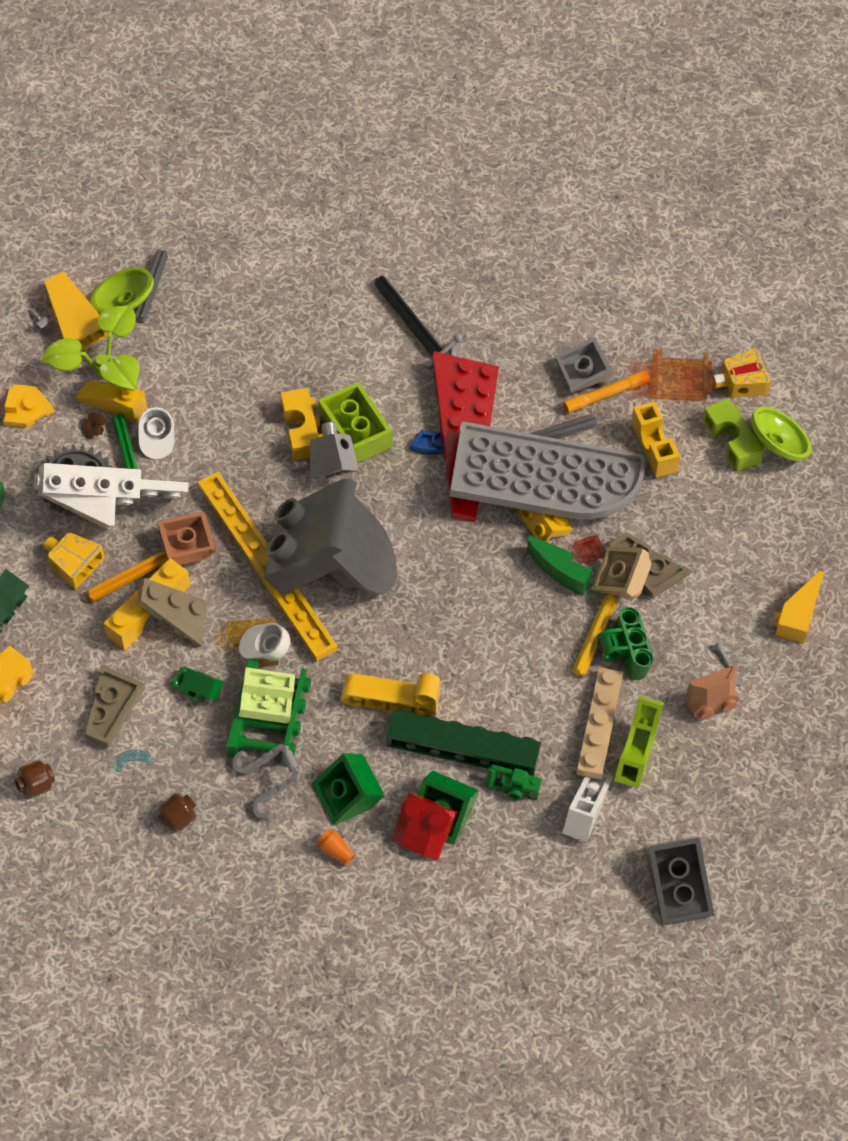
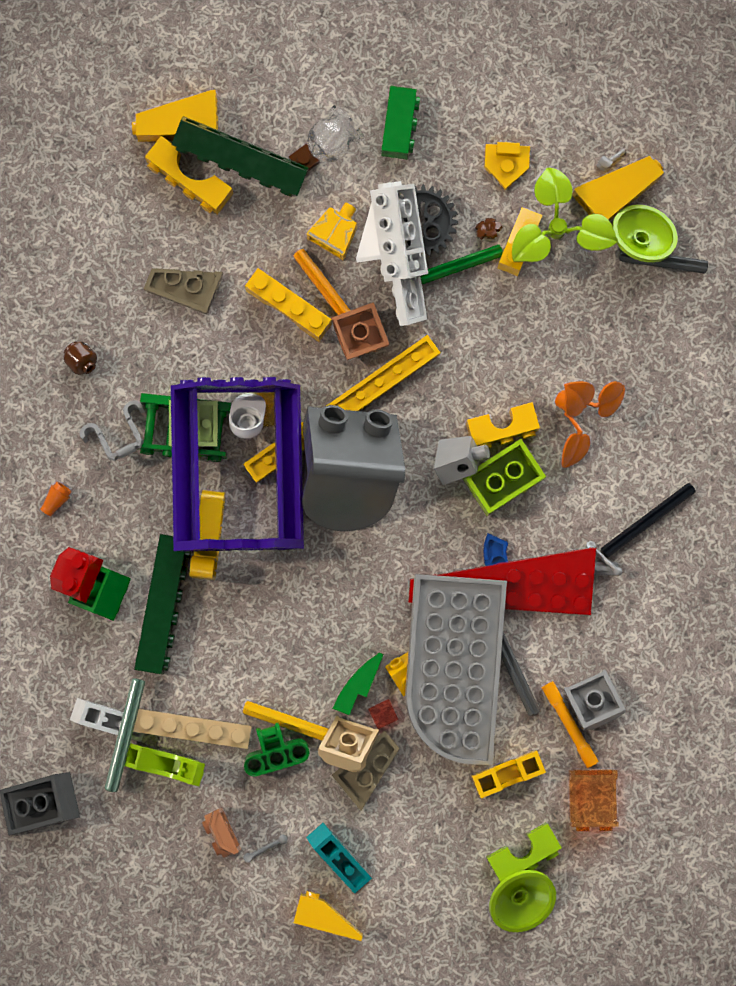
camera: 85 degrees right, 25 degrees up
(34, 778) = (106, 231): reddish brown head -> none
(132, 755) = (138, 313): clear light blue piece -> none
(156, 433) = (481, 288): white cap -> none
(175, 607) = (278, 330): dark tan wing -> none
(196, 684) = (209, 358): green piece -> none
(286, 363) = (574, 401): none -> orange plant
(317, 610) = (186, 468): none -> dark purple door
(348, 788) = (111, 505): green slope -> none
(514, 782) = (125, 652): green piece -> none
(606, 782) = (124, 735): none -> sand green axle
(736, 594) = (338, 857): none -> teal slope
(743, 375) = (598, 863): yellow torso -> none

